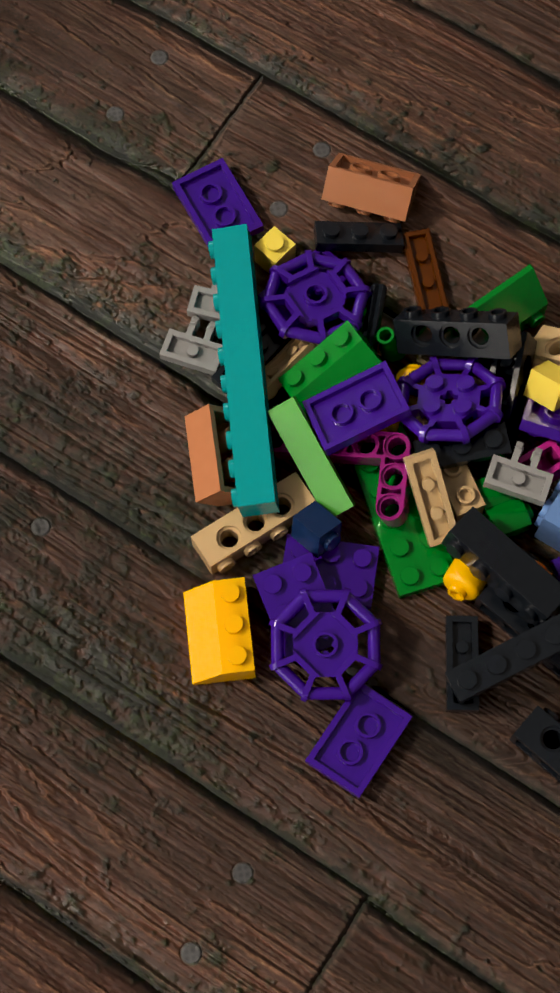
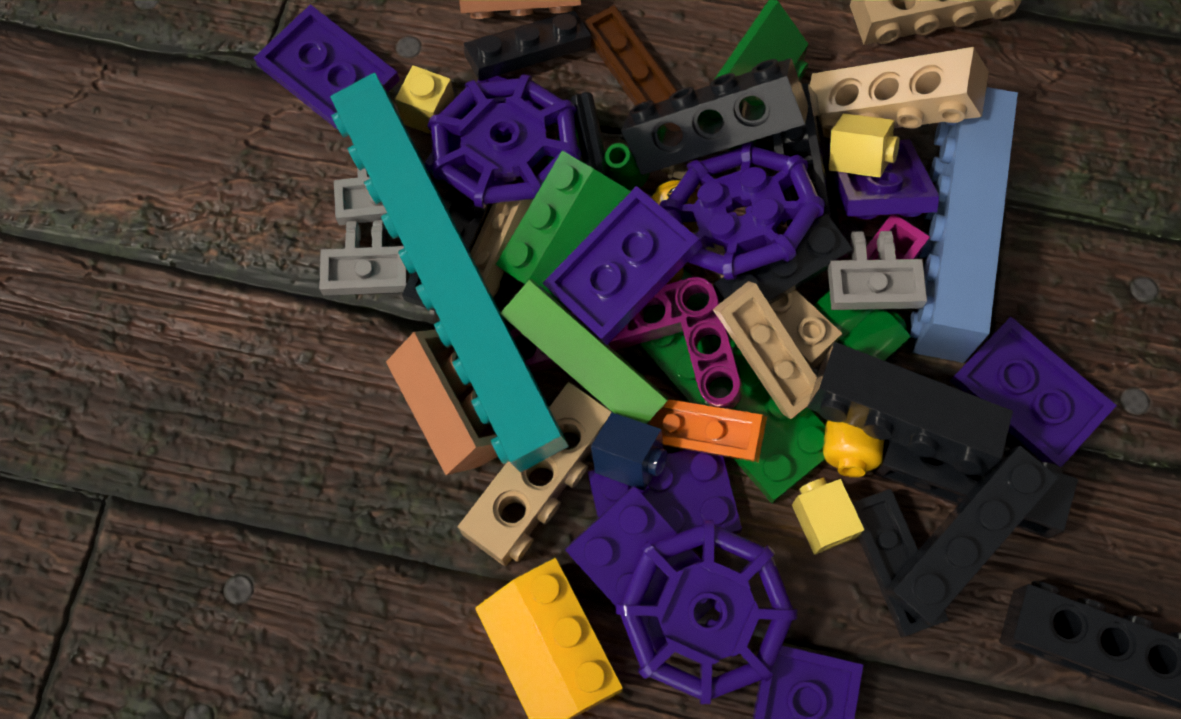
camera: 20 degrees left, 0 degrees up
(374, 535) = (711, 429): none -> orange plate
(429, 617) = (826, 515): none -> light yellow brick

